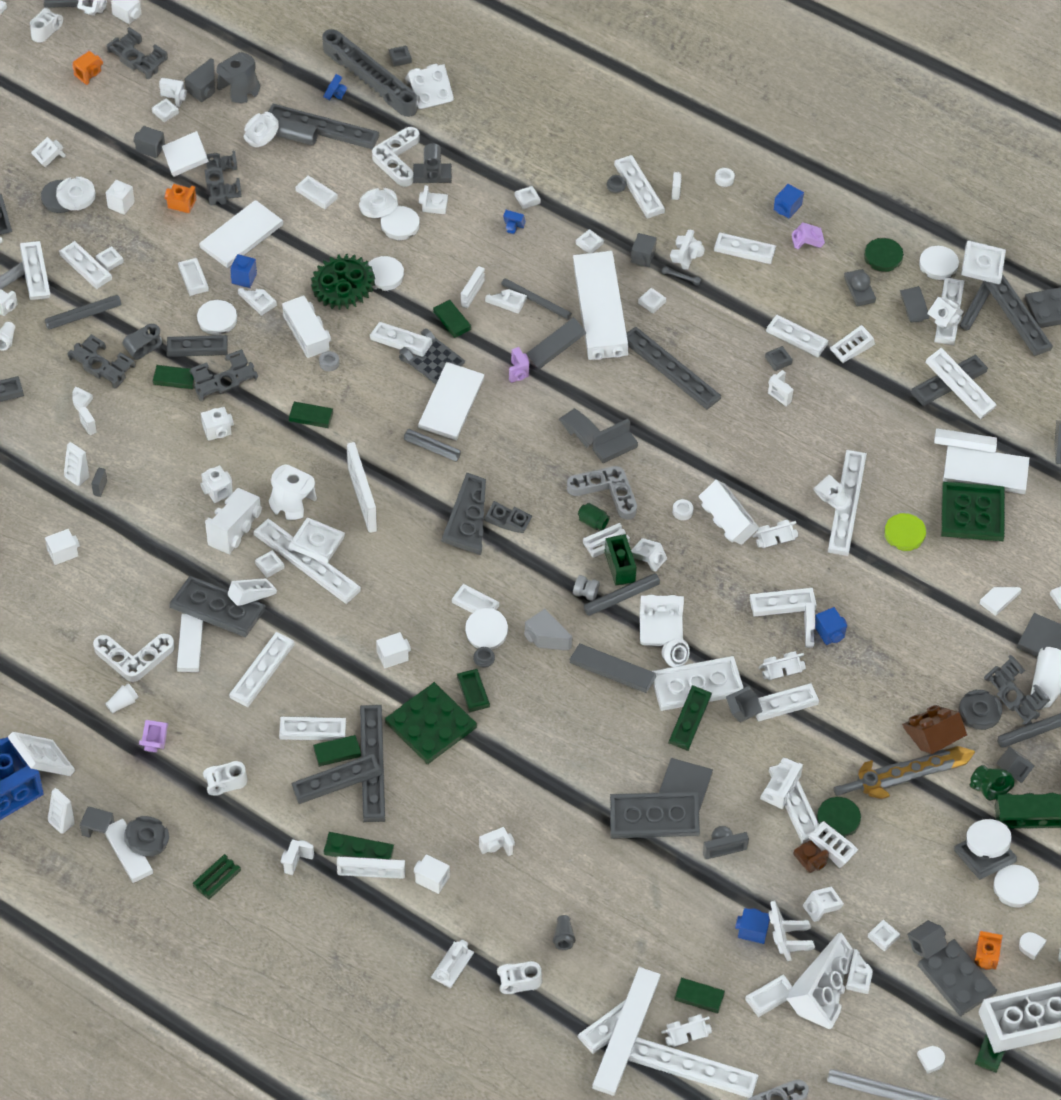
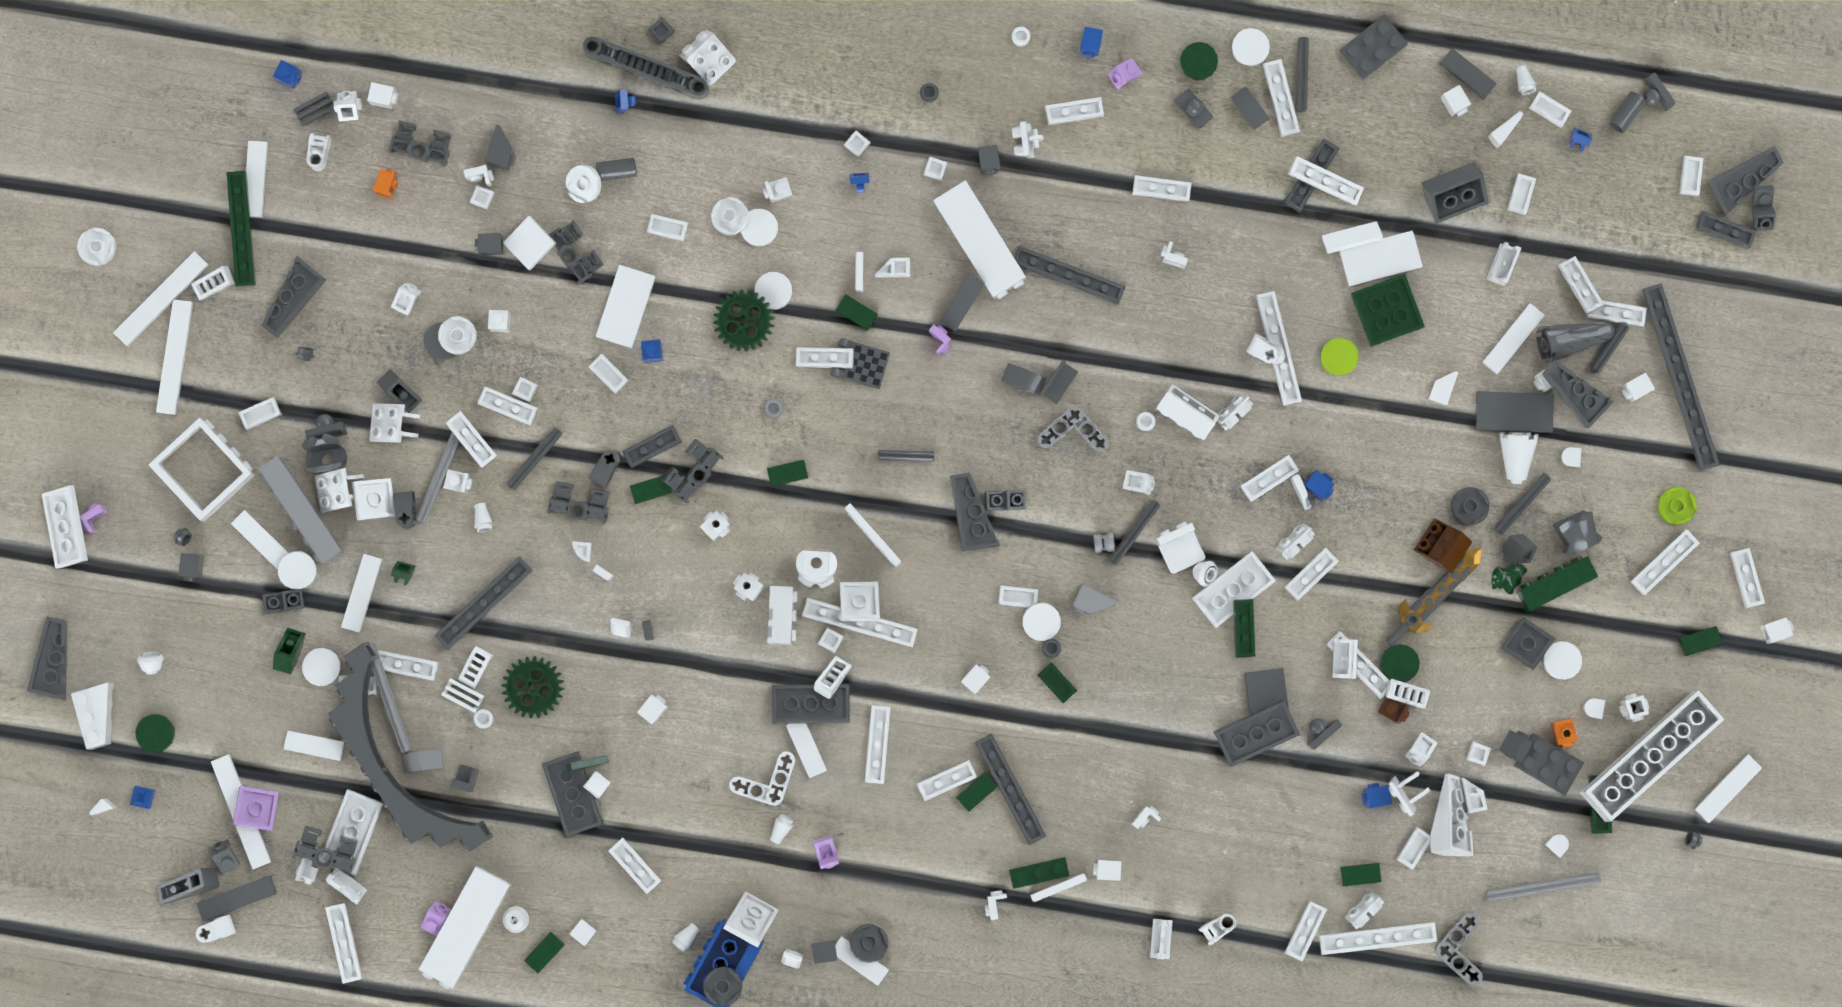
camera: 25 degrees left, 30 degrees up
(180, 198) = (557, 298): orange brick -> none
(210, 871) = (936, 965): dark green tile -> none
(217, 317) = (653, 408): white tile -> none
(224, 777) = (901, 863): white piece -> none
(241, 74) = (540, 137): dark grey piece -> none
(258, 299) = (678, 371): white tile -> none
(306, 326) = (737, 384): white brick -> none
(328, 127) = (633, 148): dark grey tile -> none
(336, 778) = (990, 820): dark grey tile -> none
(391, 154) = (710, 151): white beam -> none
(430, 723) = (1038, 730): dark green plate -> none
(432, 170) = (758, 155): dark grey tile -> none
(451, 401) = (900, 402): white tile -> none
(537, 299) = (918, 255): dark grey bar -> none
(564, 934) = (1234, 872): dark grey cone -> none
(593, 516) = (1076, 467): dark green brick -> none
(599, 539) = (1106, 471): white tile -> none
(612, 668) = (1160, 610): dark grey tile -> none
(620, 559) = (1120, 504): dark green brick -> none
(626, 1031) = (1321, 935): white tile -> none
(639, 186) = (950, 83): white tile -> none
(652, 300) = (1019, 209): white tile -> none
(676, 186) = (984, 70): white tile -> none
(696, 280) = (1048, 167): dark grey hinge -> none
(744, 704) = (1282, 597): dark grey panel -> none
(778, 358) = (1156, 221): dark grey tile -> none
(847, 340) = (1227, 166): white slope -> none
(945, 312) = (1284, 112): white brick -> none
(983, 262) = (1294, 39): white tile -> none
(988, 838) = (1527, 632): white tile -> none
(1003, 682) = (1509, 491): dark grey piece -> none
(1019, 316) = (1335, 69): dark grey tile -> none

